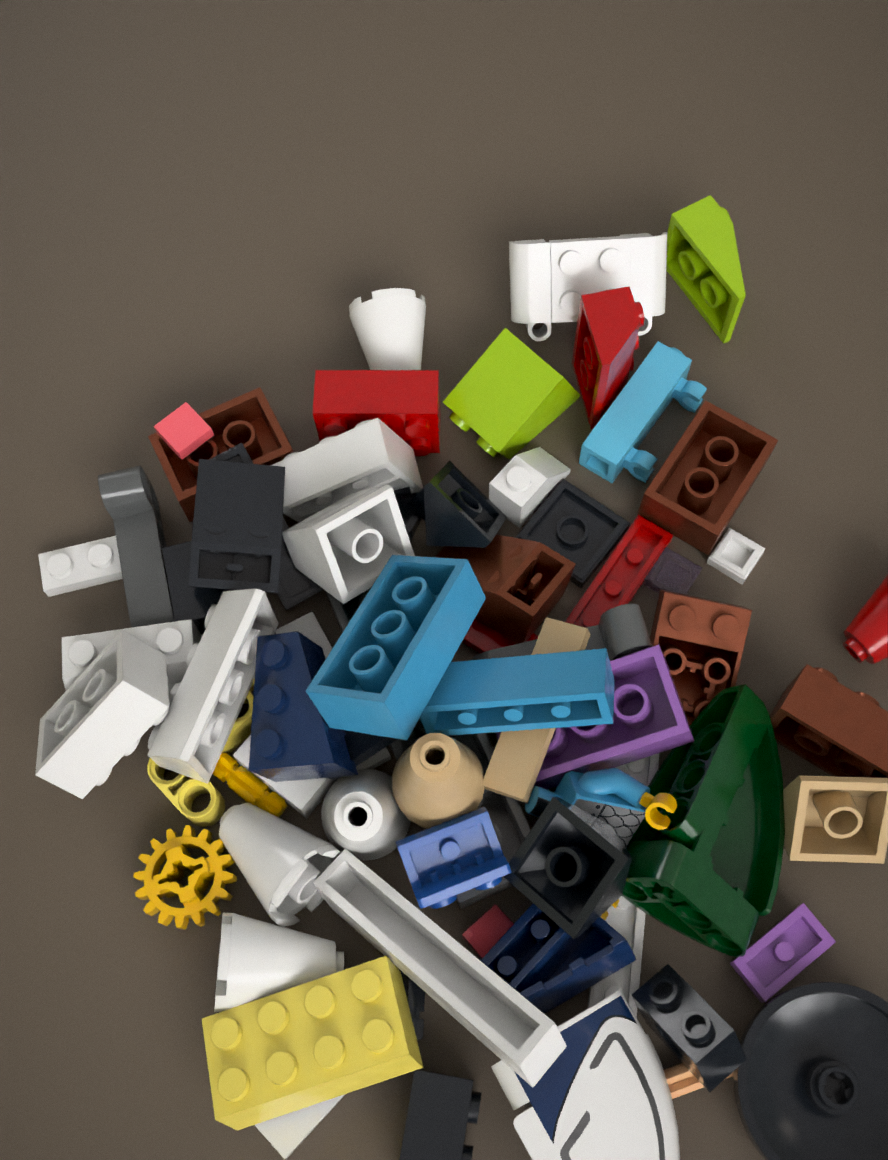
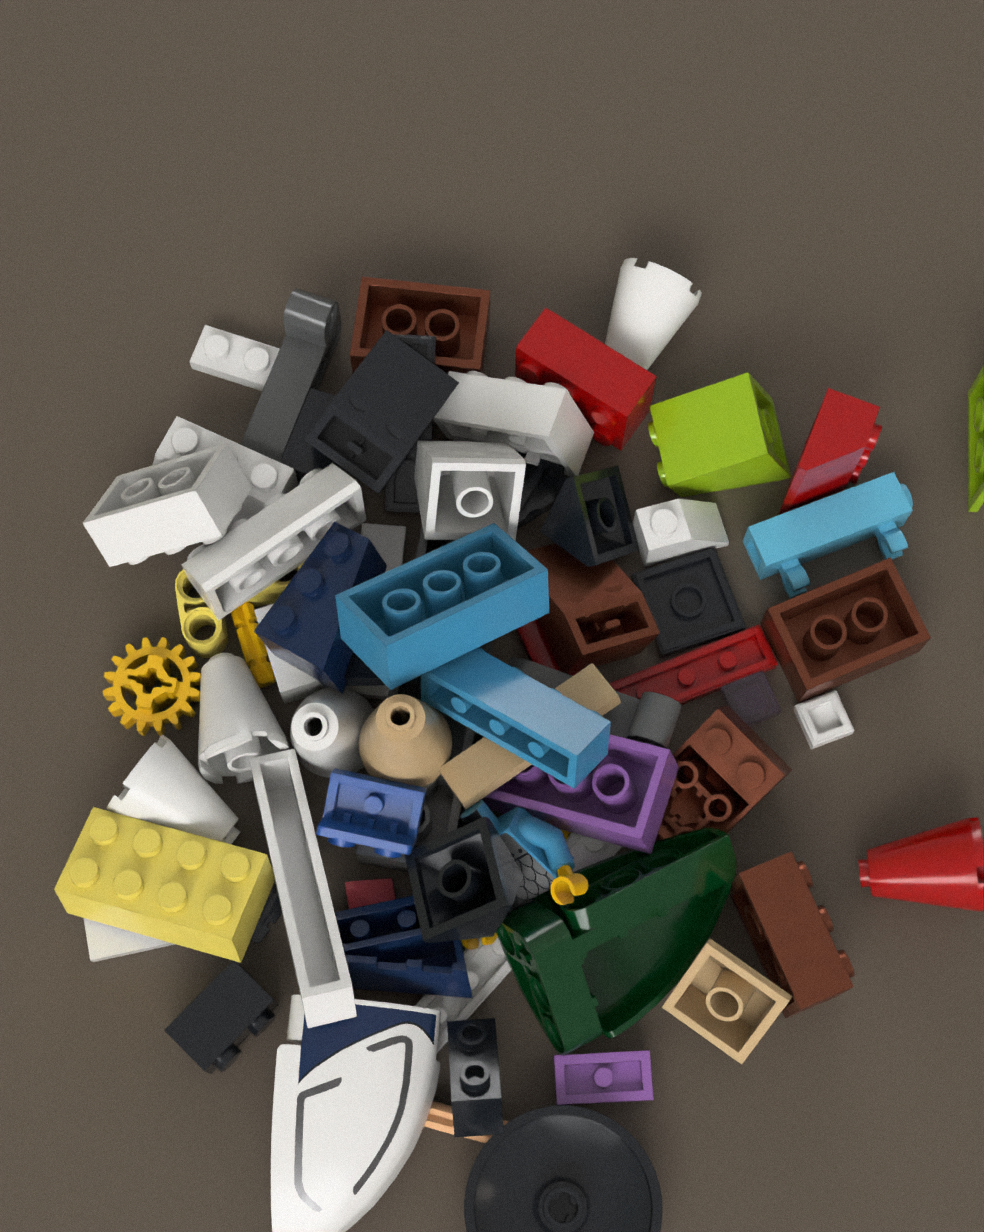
camera: 30 degrees right, 5 degrees up
(184, 430) = (394, 292): coral tile -> none
(554, 275) = (855, 358): white container -> none

